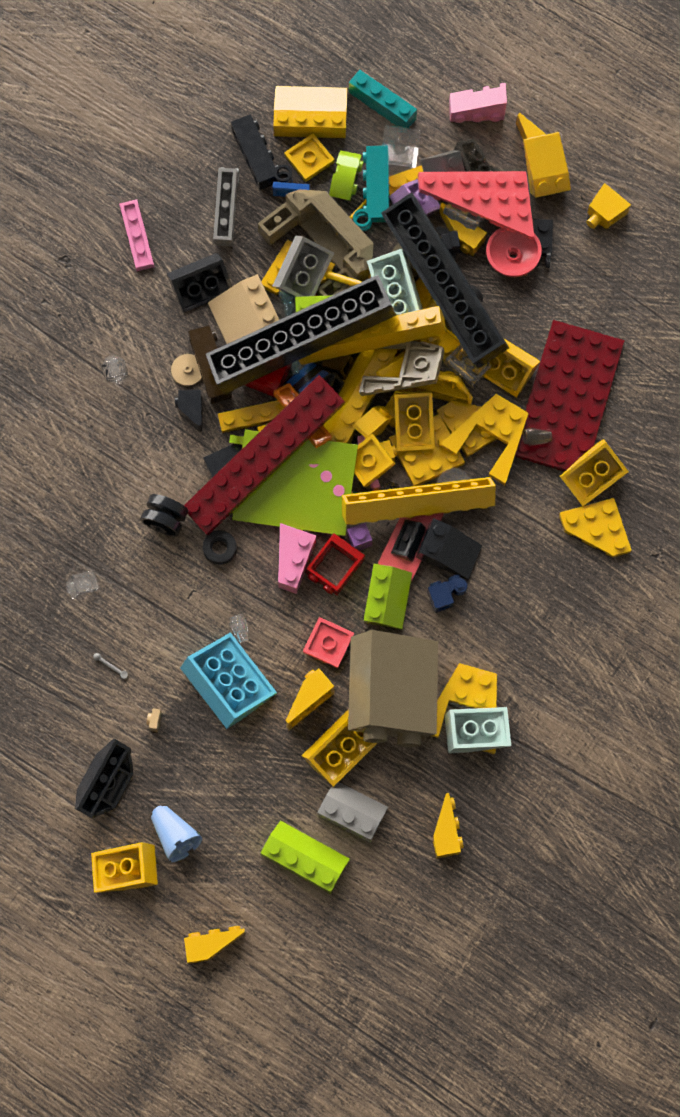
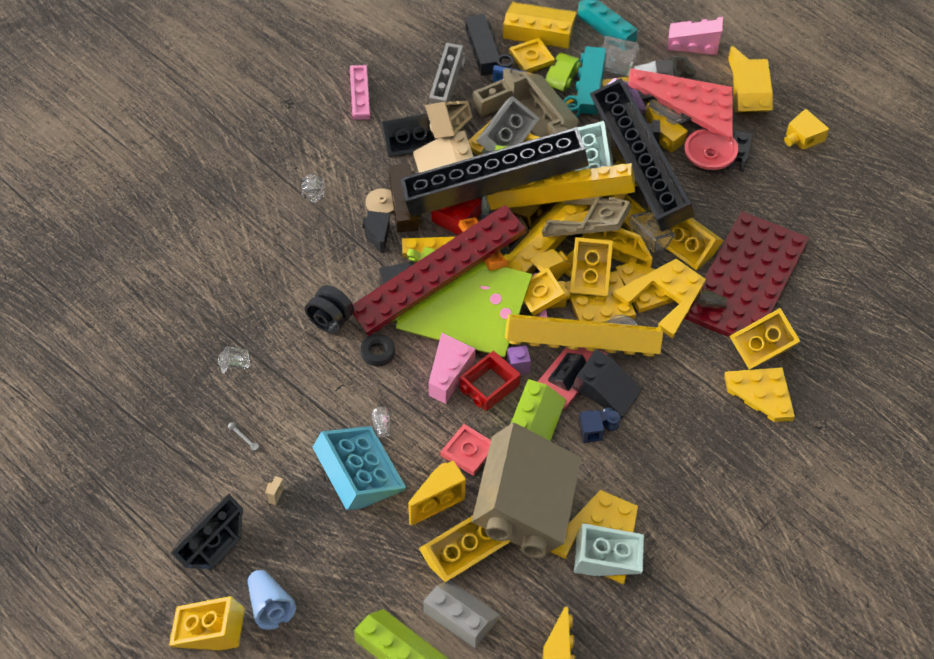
camera: 10 degrees right, 20 degrees down
(238, 262) = (448, 117): none -> tan wedge

